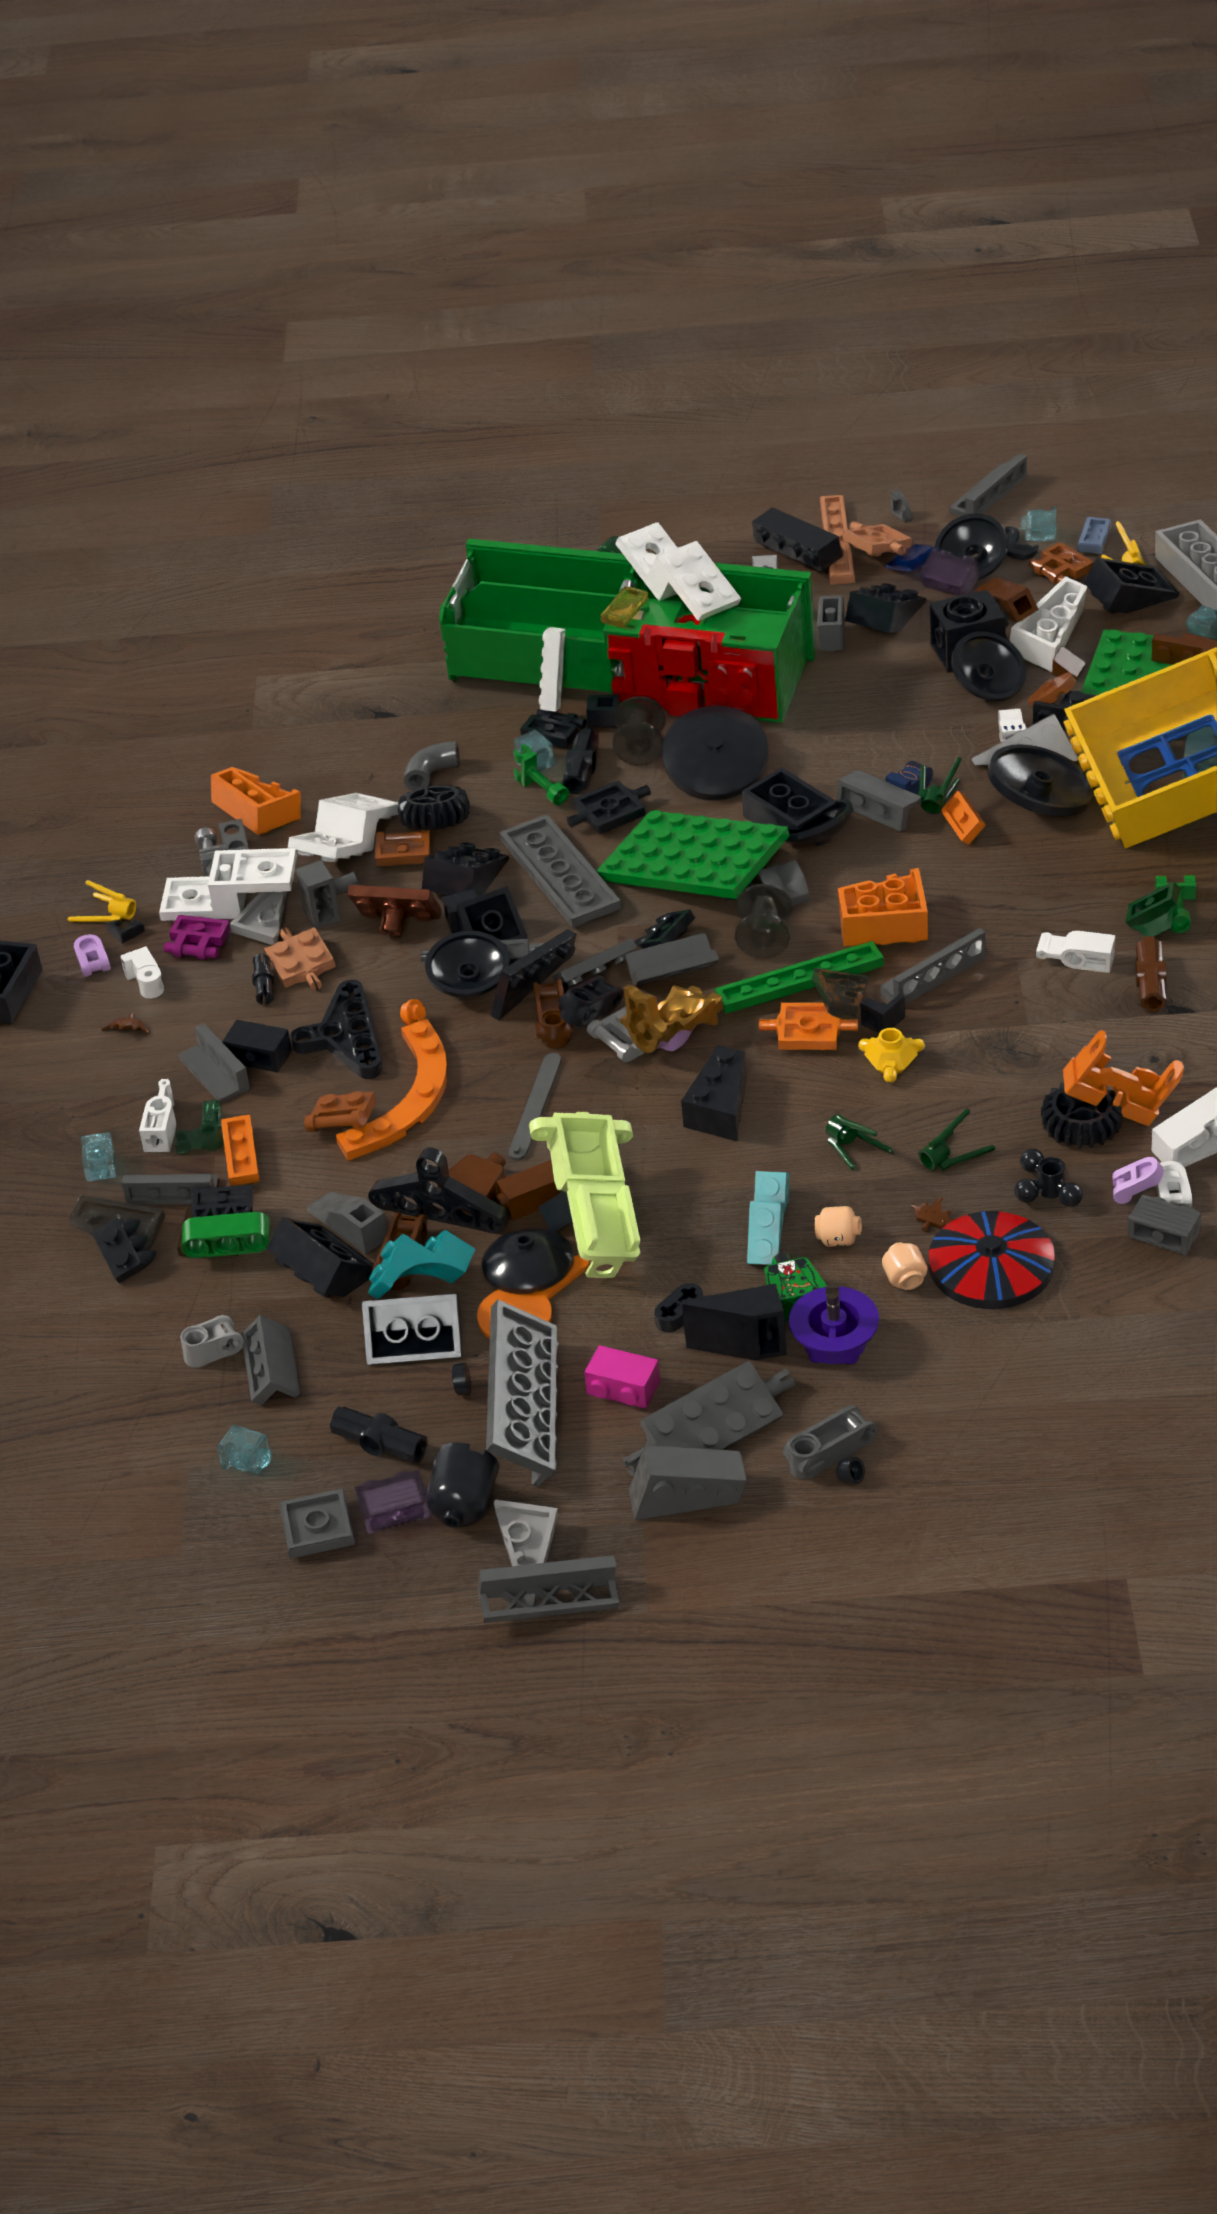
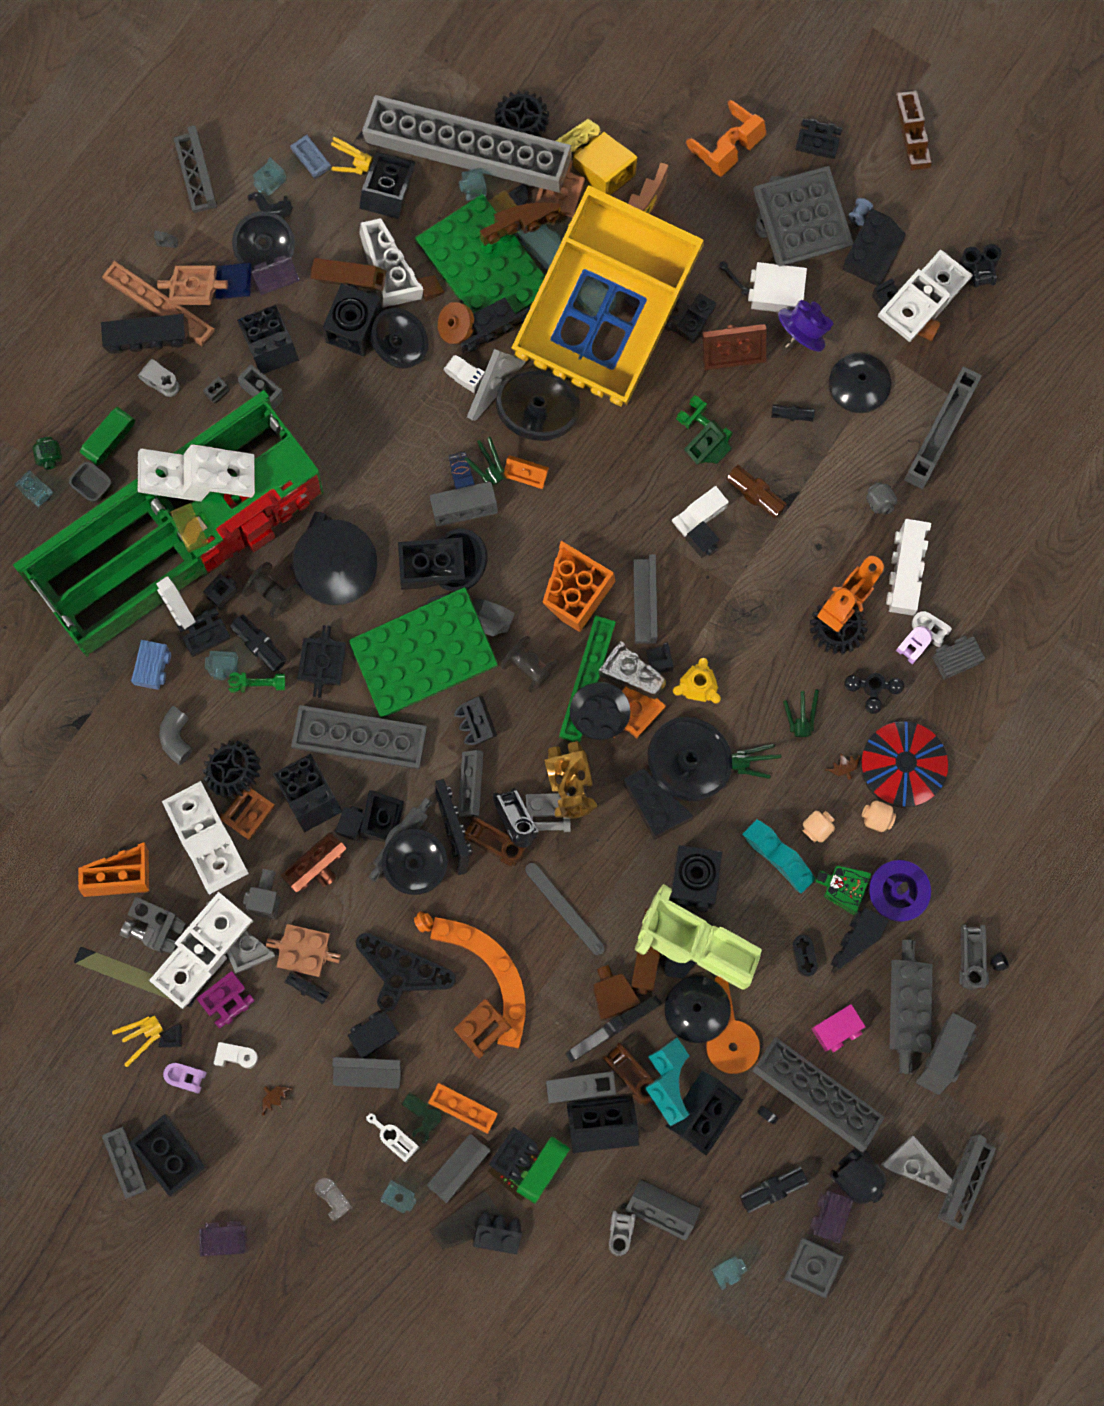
camera: 60 degrees left, 35 degrees up
(55, 1116) = (334, 1197): none -> clear leg
(159, 862) = (119, 971): none -> olive sticker
(483, 714) = (151, 665): none -> medium blue brick
(669, 1159) = (695, 892): none -> black brick
(670, 959) = (511, 740): dark grey panel -> none
(767, 984) = (600, 710): none -> black piece
(796, 1084) = (689, 759): none -> black dish
(1048, 966) = (703, 540): none -> black brick
(1065, 560) = (323, 196): dark orange plate -> none

